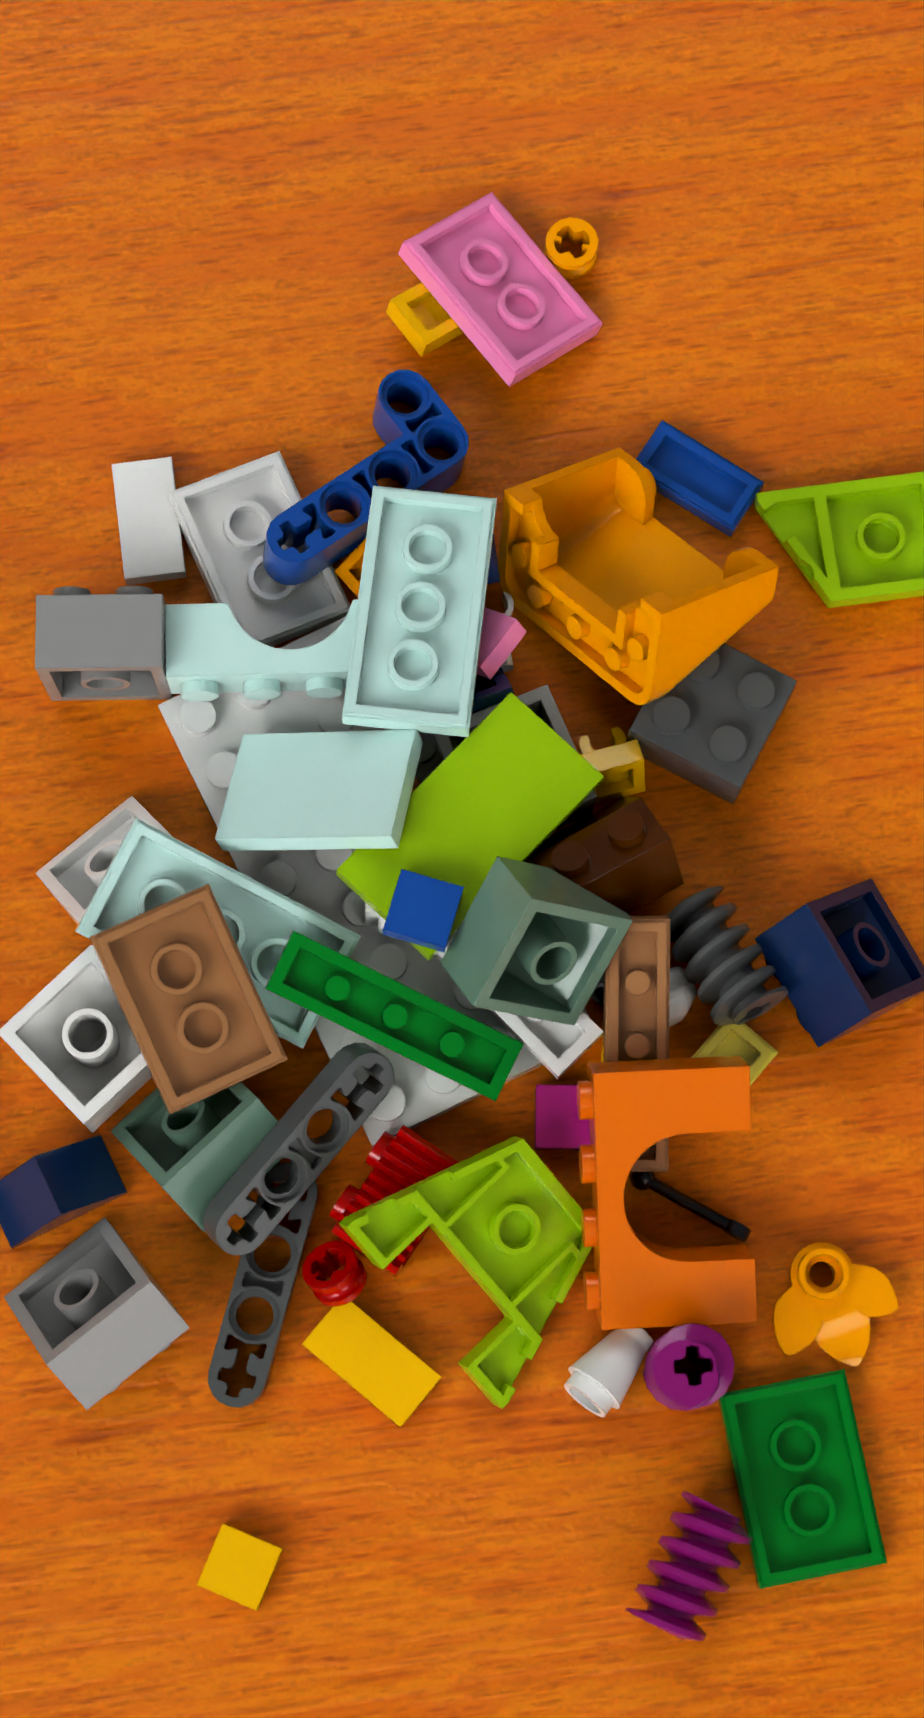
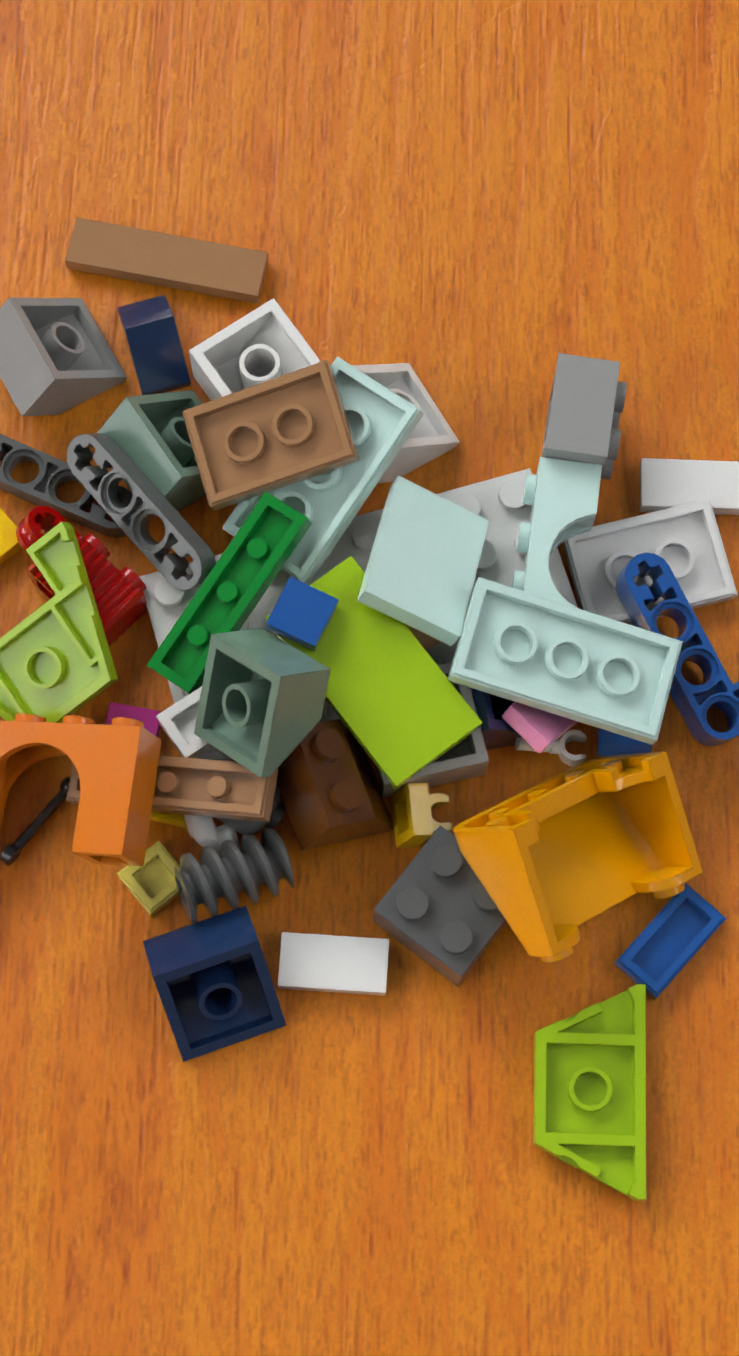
camera: 100 degrees right, 5 degrees down
(793, 836) = (333, 963): none -> white tile

